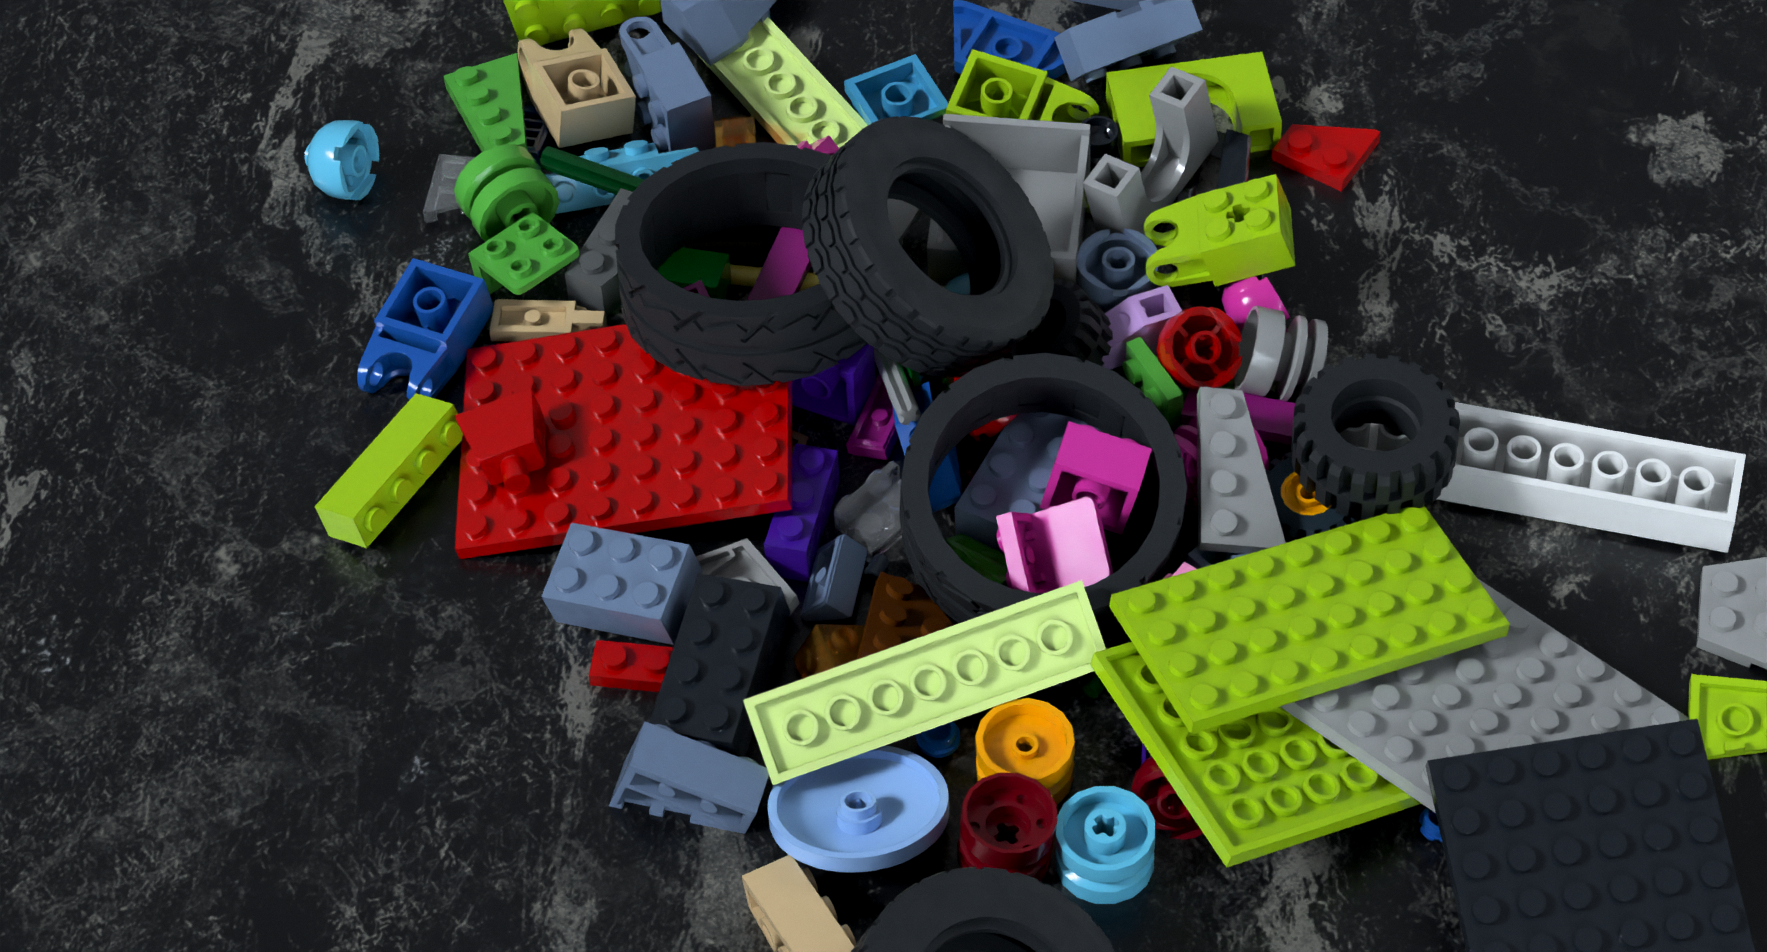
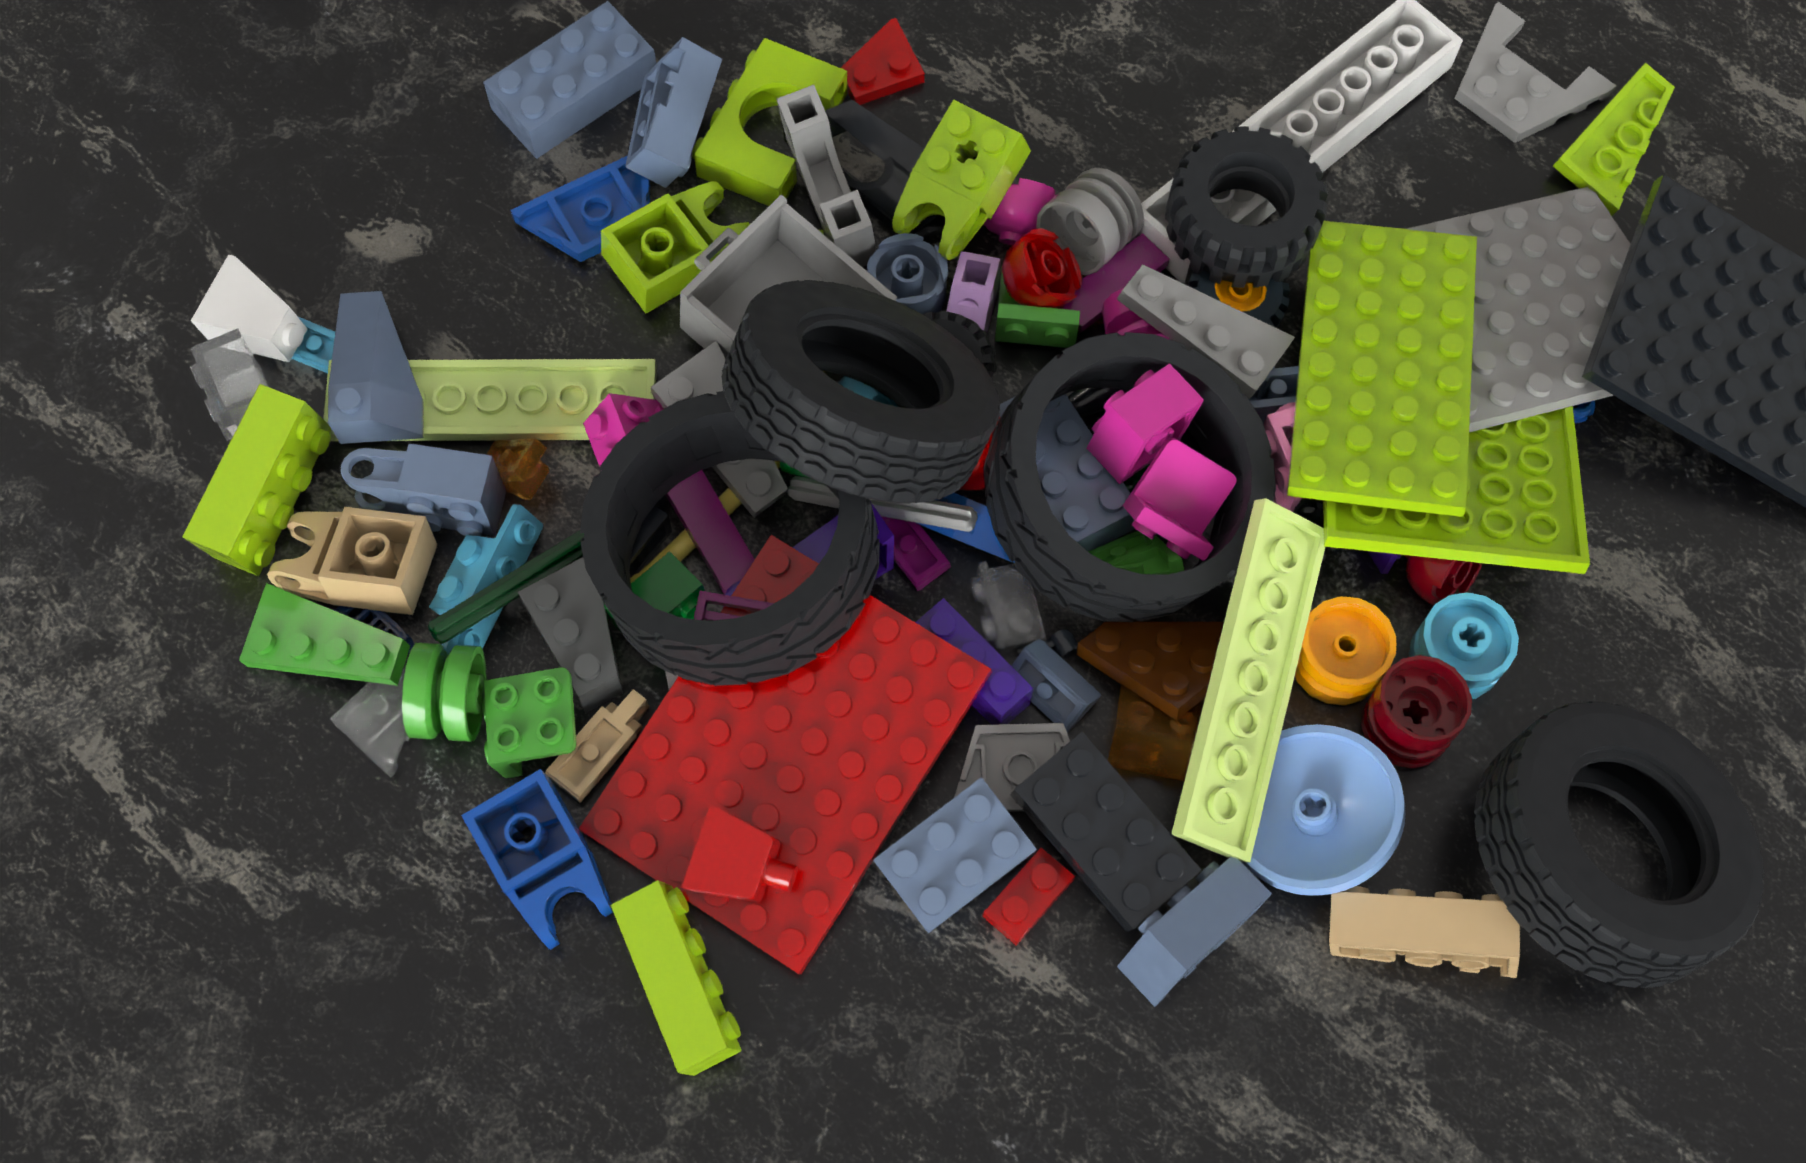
camera: 60 degrees left, 15 degrees up
(342, 159) = (273, 808): medium azure cylinder -> none
(896, 90) = (587, 319): dark azure slope -> none
(1102, 138) = (749, 201): black wheel -> none

